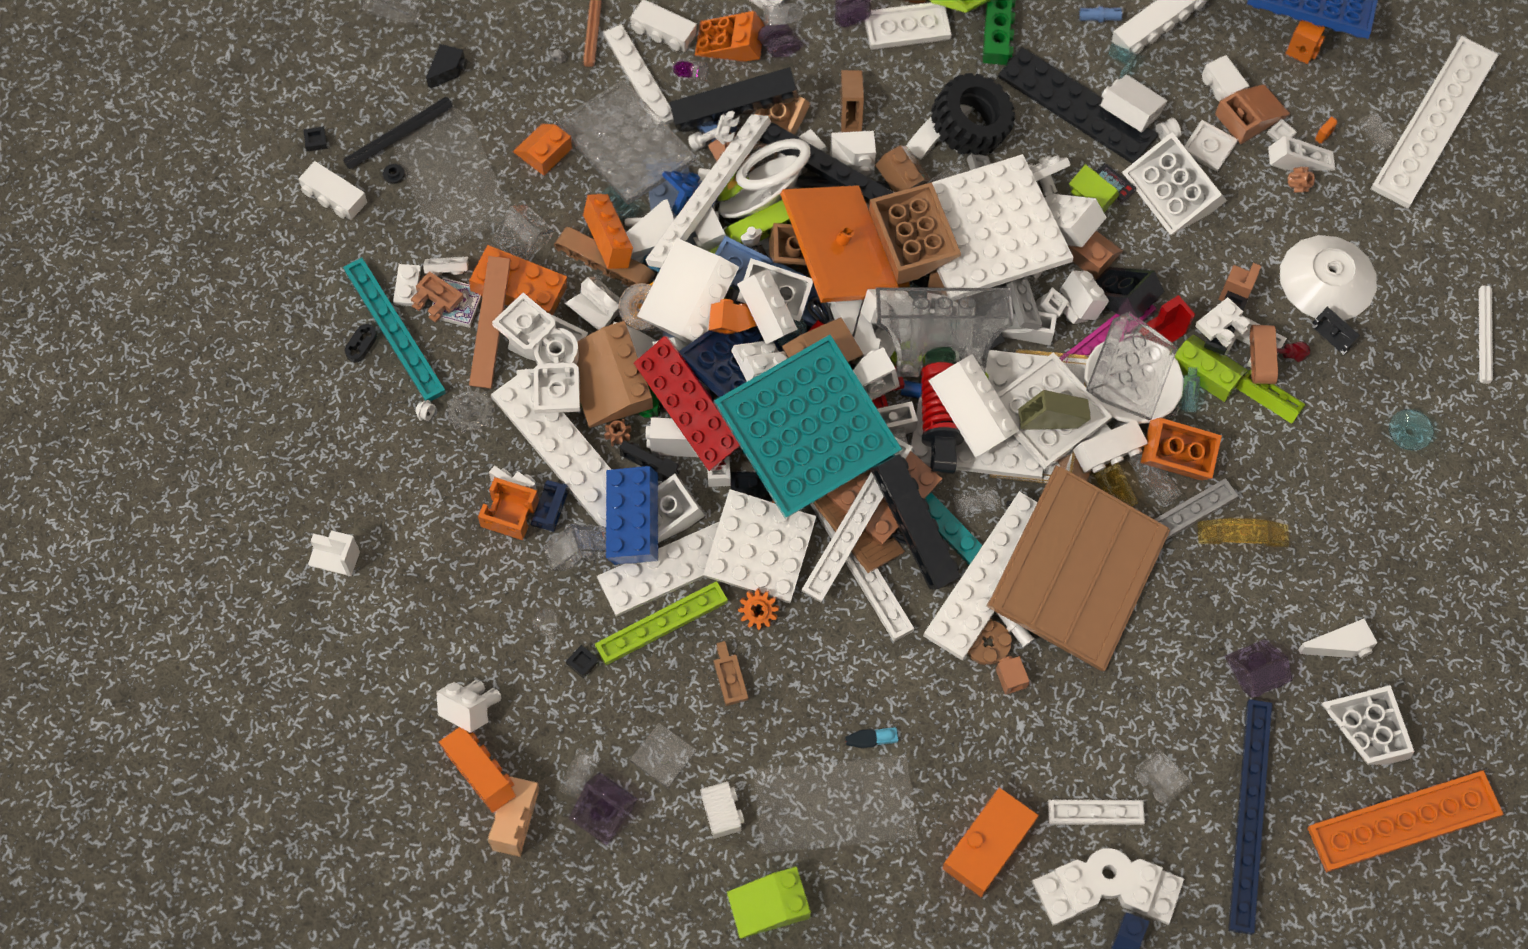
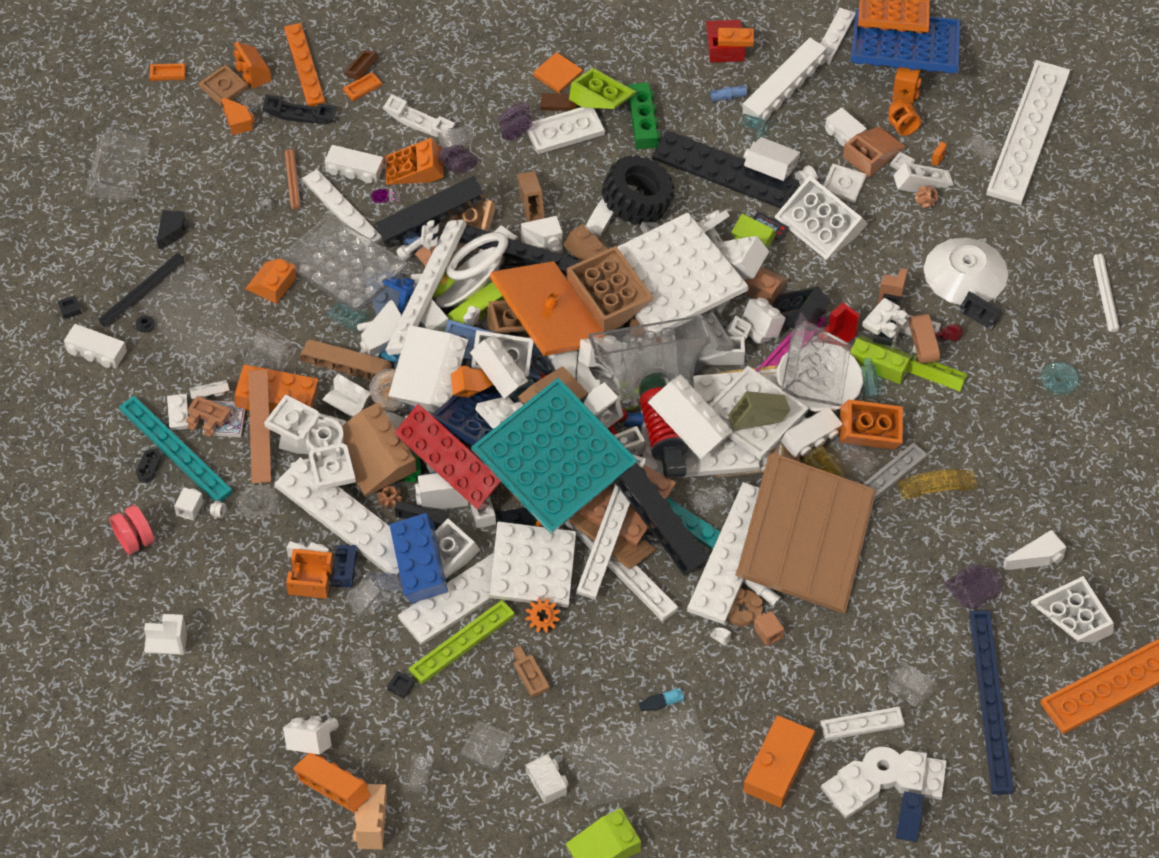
camera: 10 degrees left, 10 degrees down
(322, 419) = (131, 529): none -> coral wheel
(394, 397) = (188, 503): none -> white brick
(602, 808) = (445, 796): slope -> none
(607, 231) = (345, 336): orange brick -> none
(956, 672) = (721, 635): none -> white tile
(1300, 79) = (908, 115): none -> orange helmet

